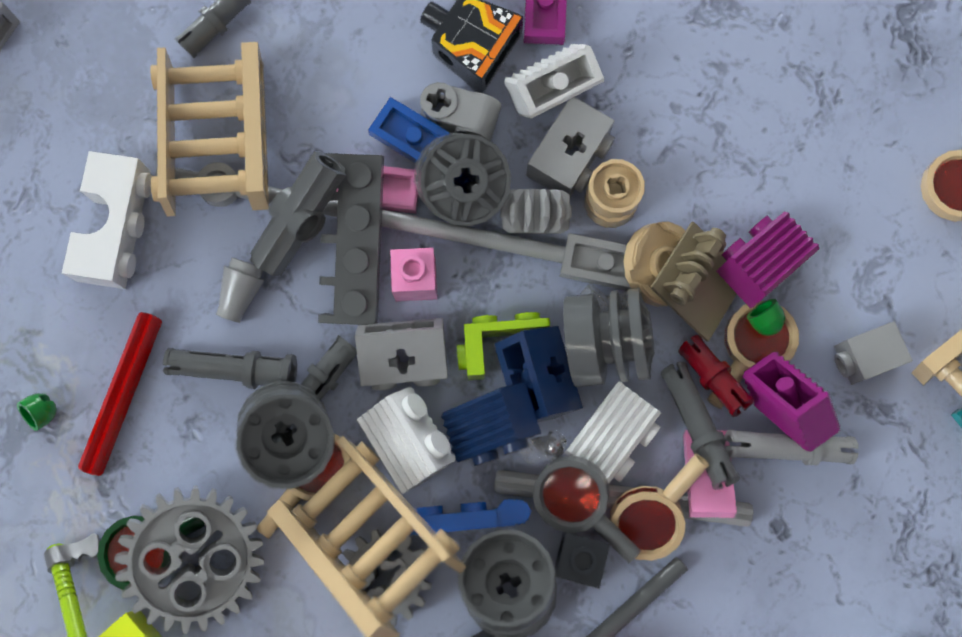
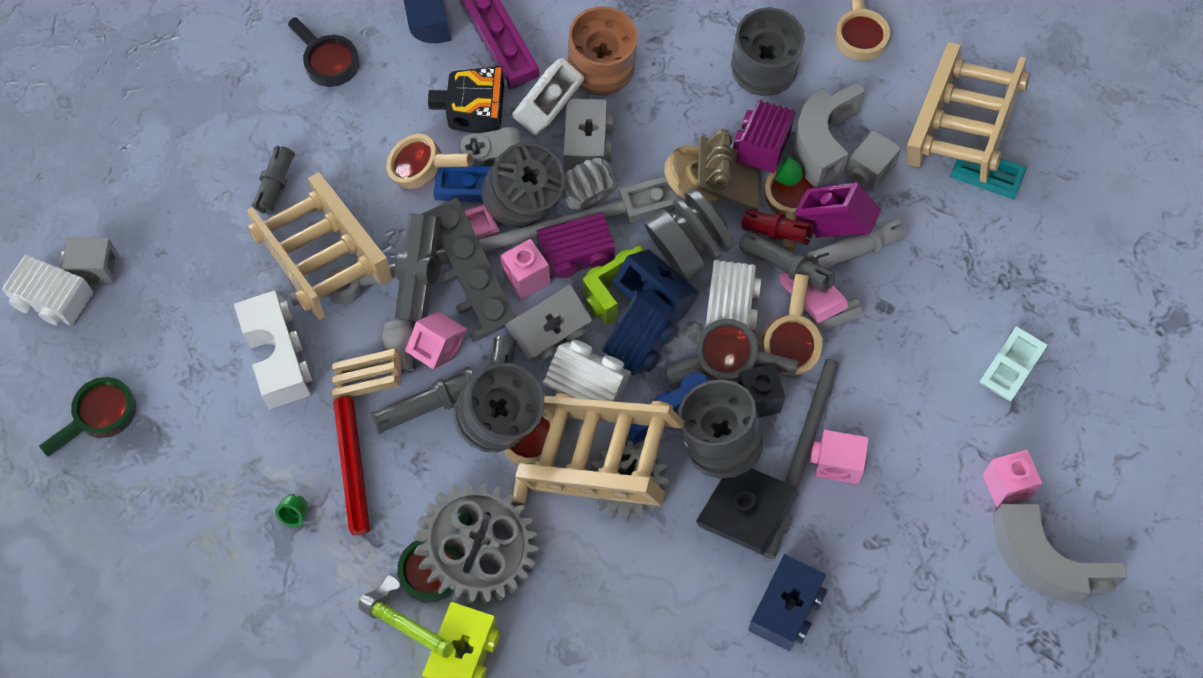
camera: 30 degrees left, 15 degrees down
(163, 292) = (366, 368): none -> tan tile
(273, 306) = (435, 340): none -> bright pink brick
(374, 79) = (418, 159): none -> tan piece
(484, 275) = (576, 245): none -> magenta brick
(614, 193) = (634, 147): tan wheel -> none
(647, 32) = (603, 49): none -> nougat wheel
(814, 301) = (813, 145): none -> light grey arch
(844, 137) = (767, 51): none -> dark grey wheel

